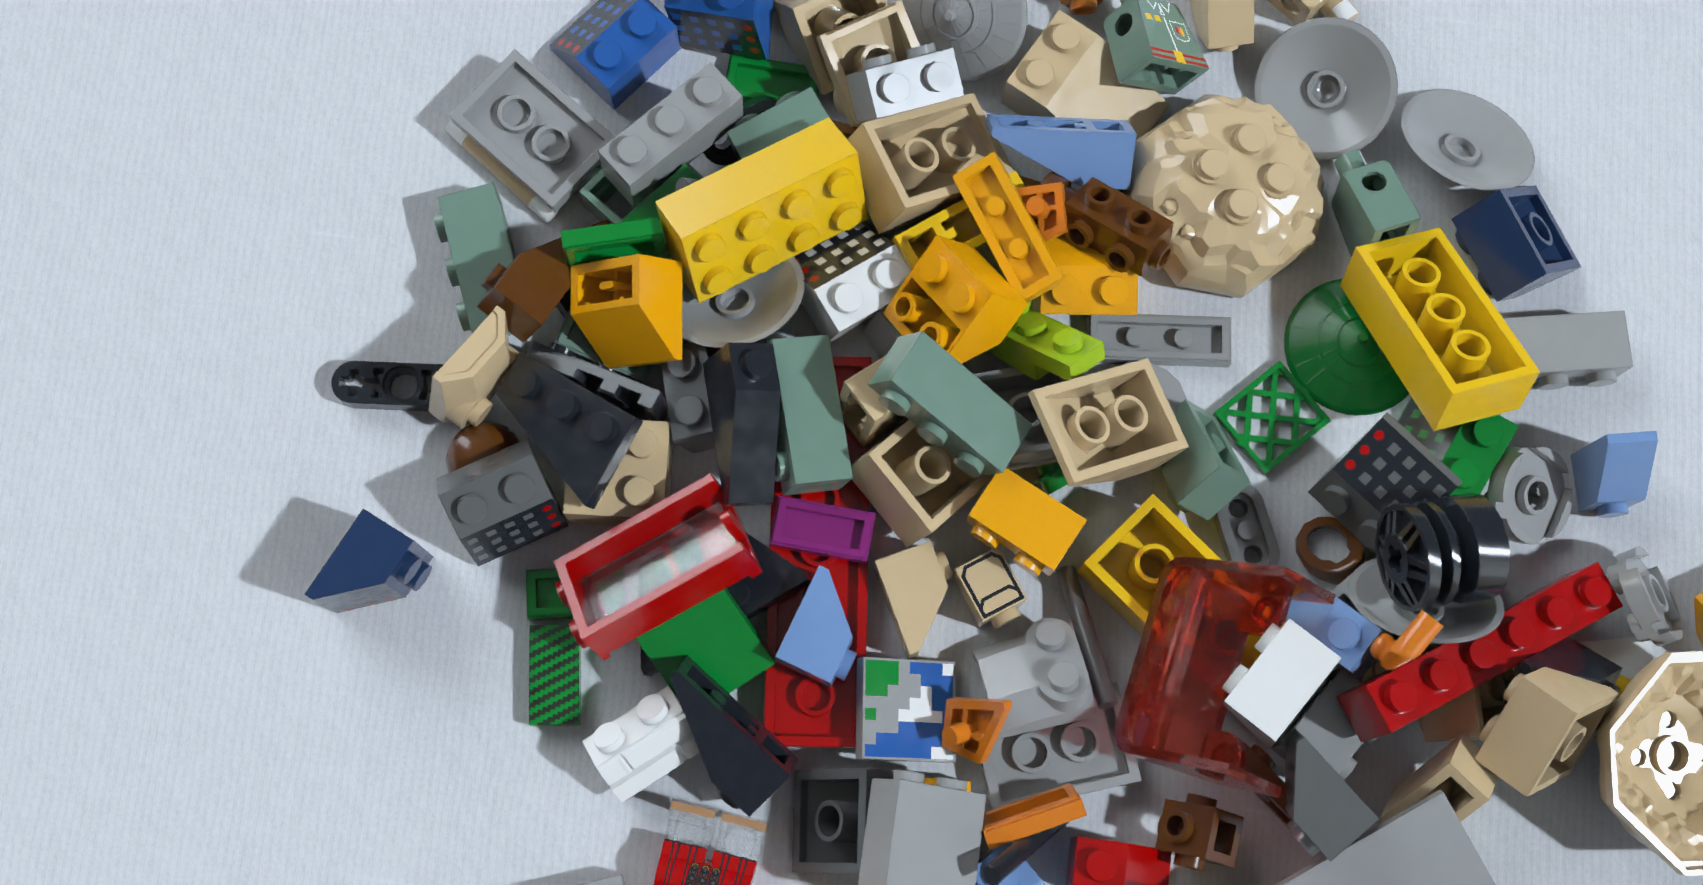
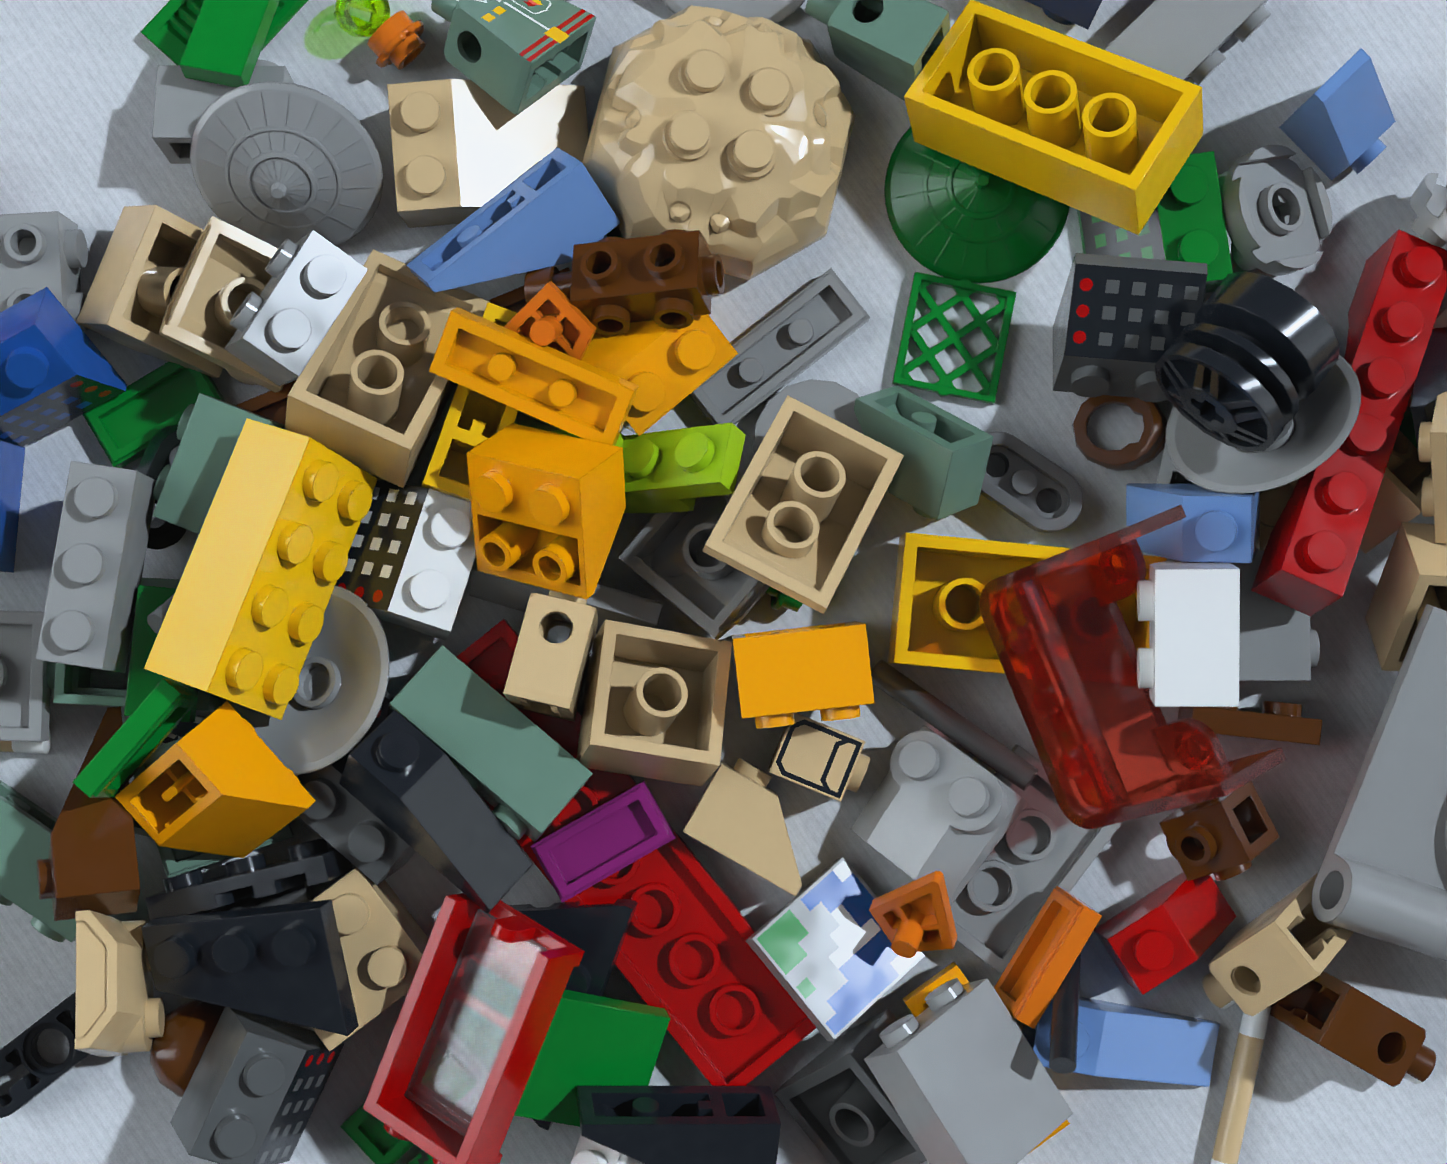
camera: 40 degrees left, 10 degrees up
(819, 634) = (690, 954): medium blue slope -> none
(949, 405) = (630, 628): sand green brick -> none
(1321, 804) = (1328, 716): dark grey slope -> none
(1409, 645) = (1293, 491): orange arm -> none

